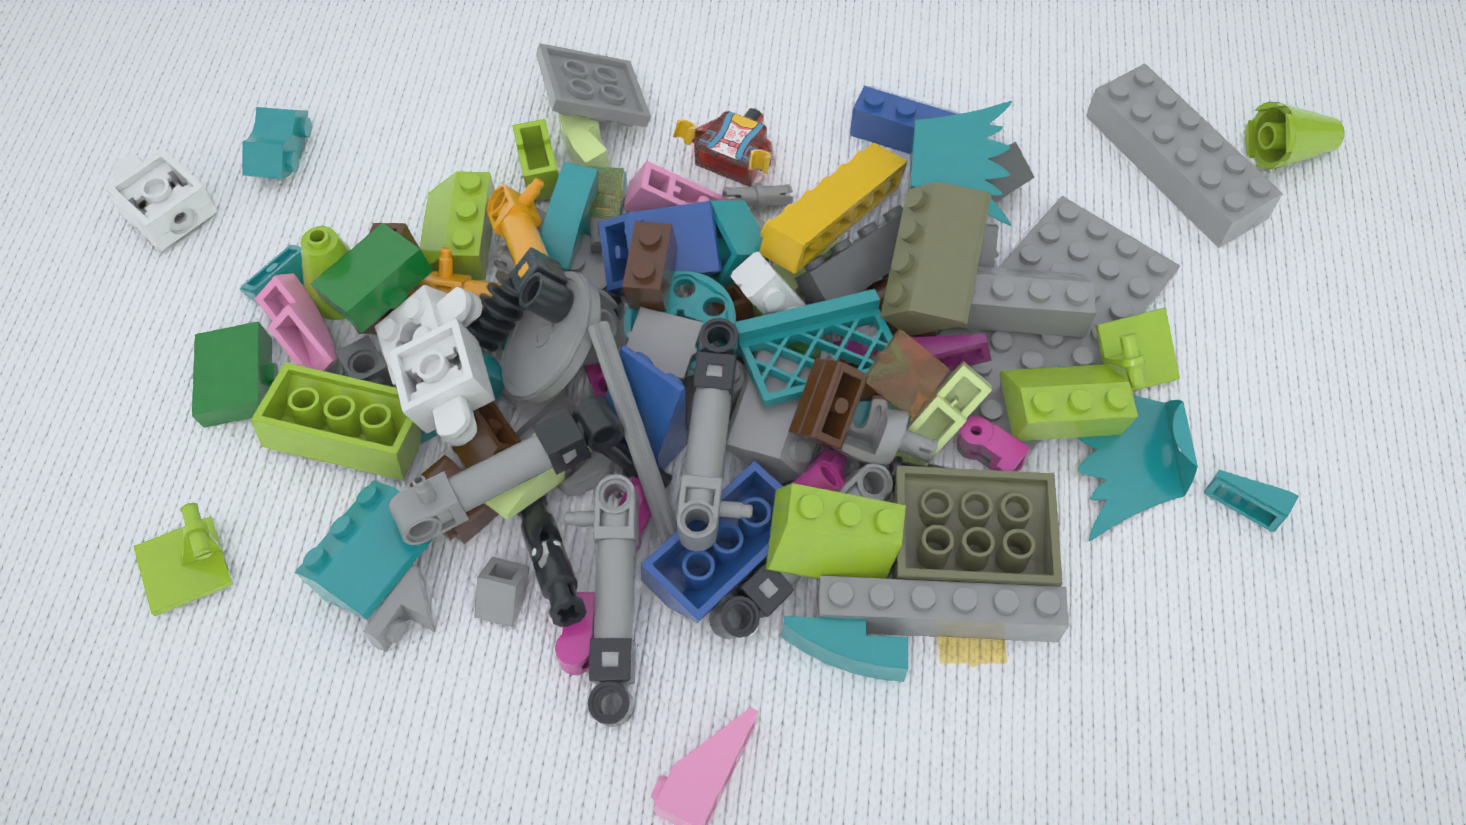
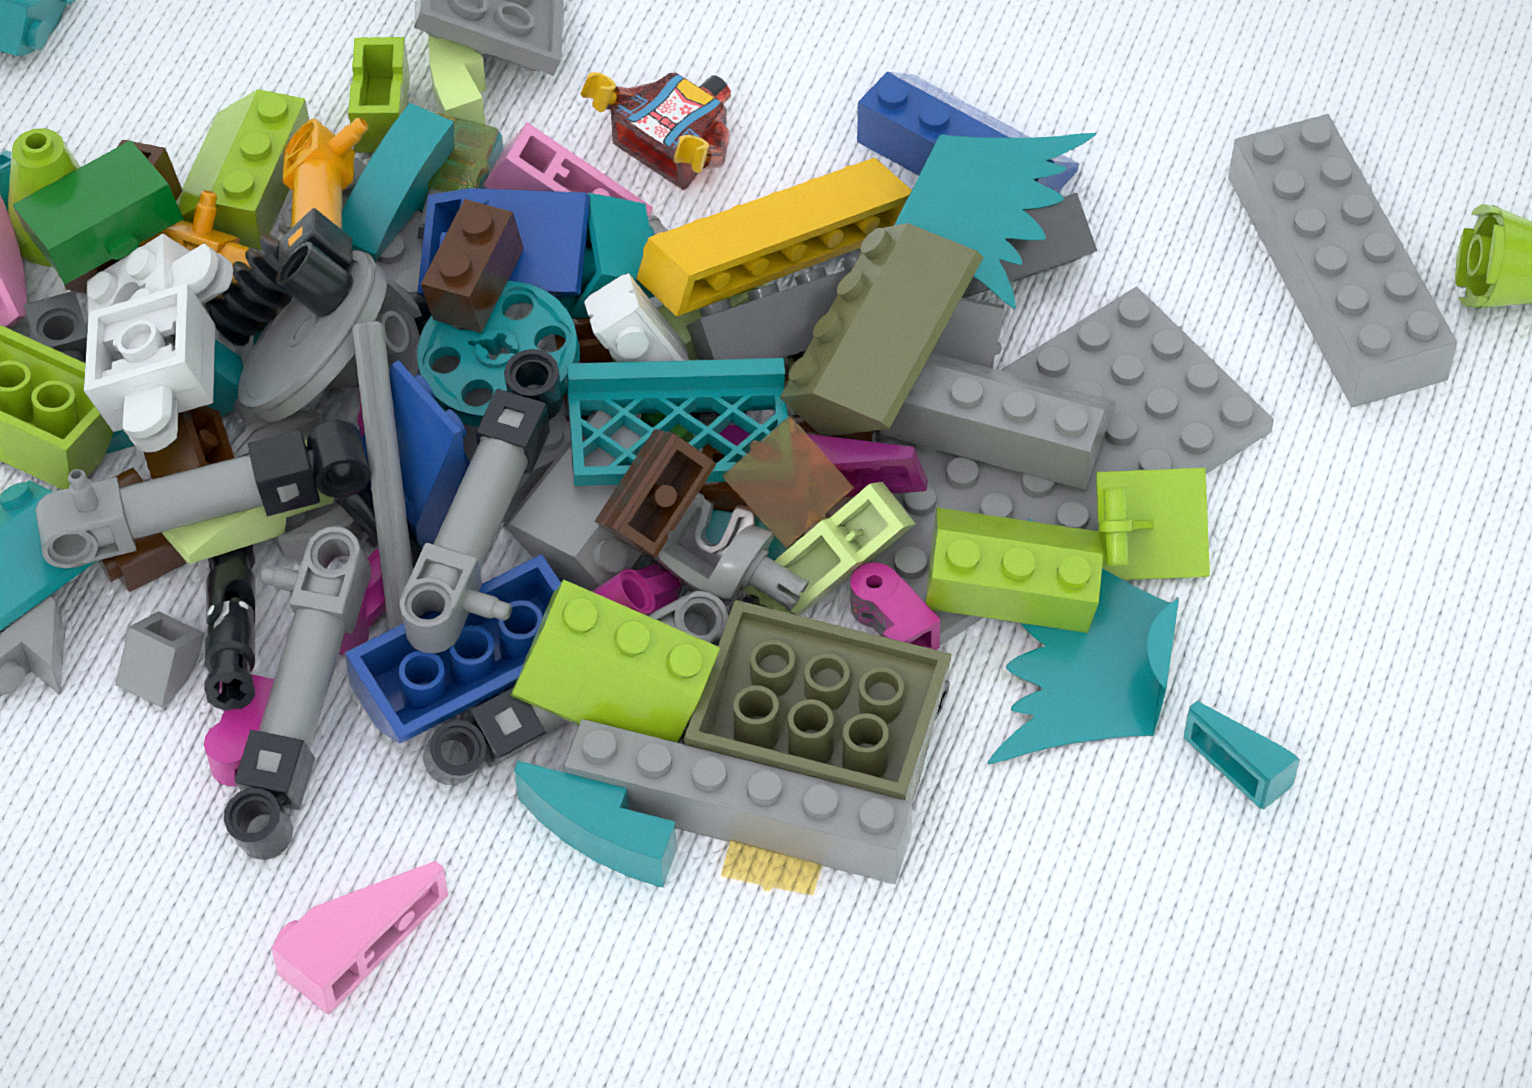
camera: 15 degrees right, 5 degrees down
(666, 340) = (463, 370): light grey piece -> none
(759, 196) = (680, 202): light grey pin -> none

